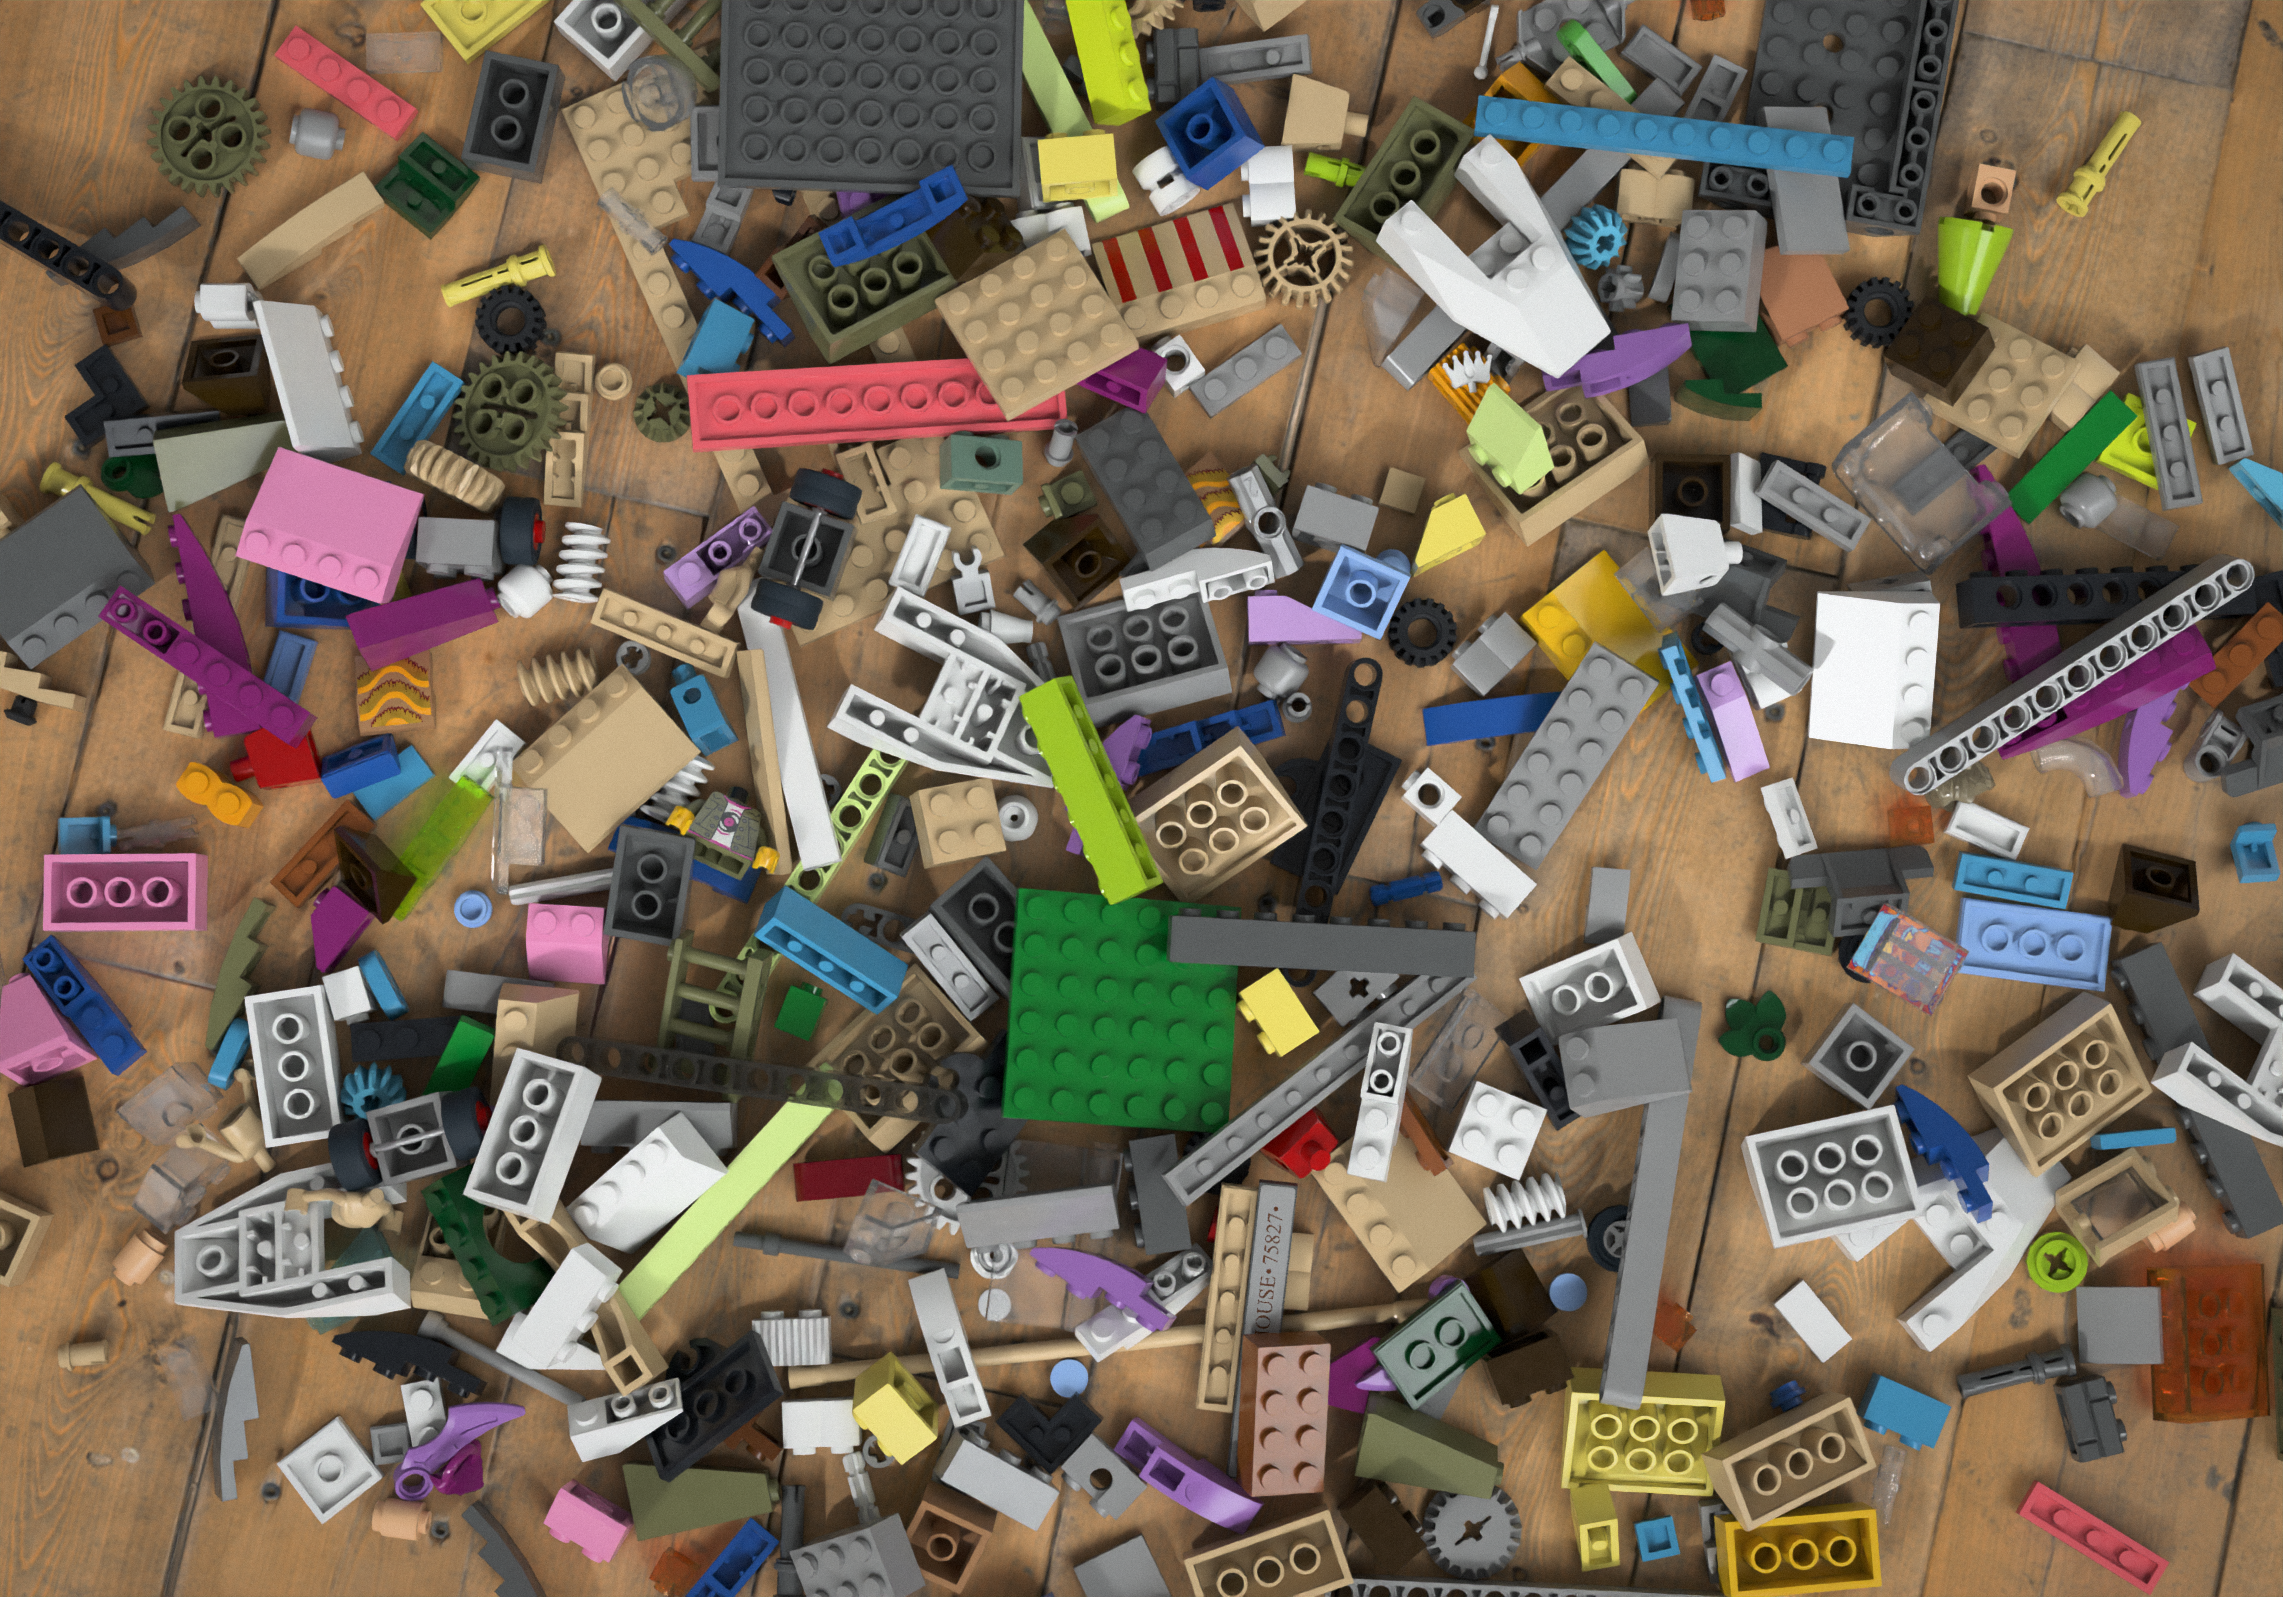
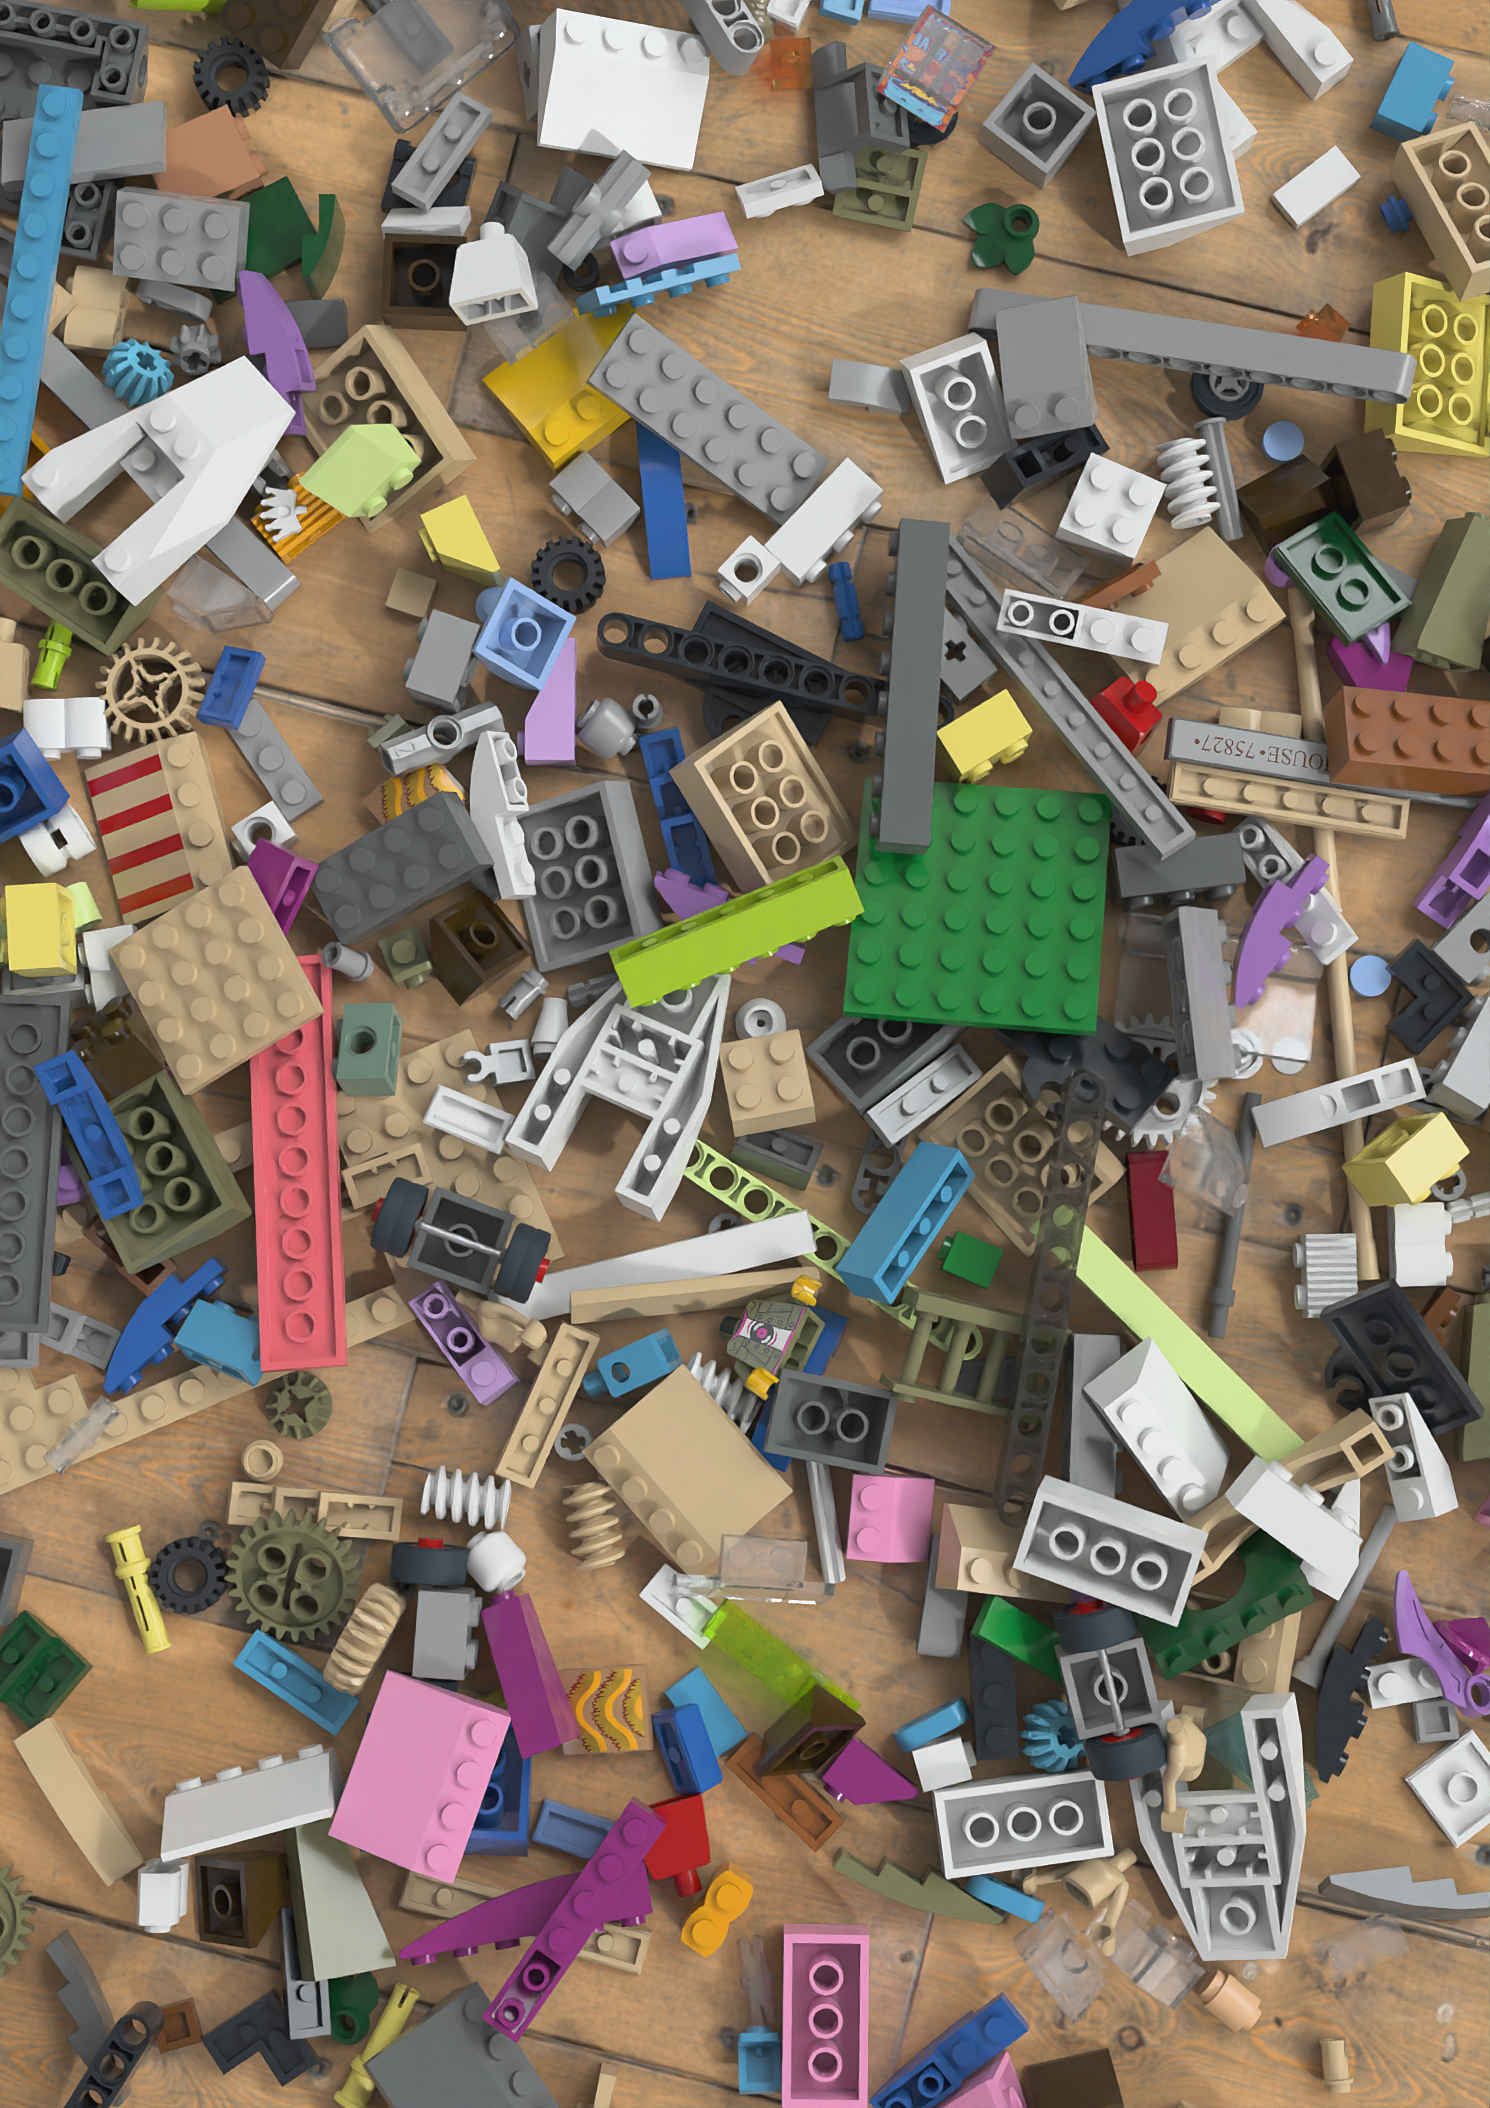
camera: 90 degrees left, 0 degrees up
(473, 909) = (848, 1624): light blue plate -> none
(1309, 331) = (231, 687): none -> blue plate

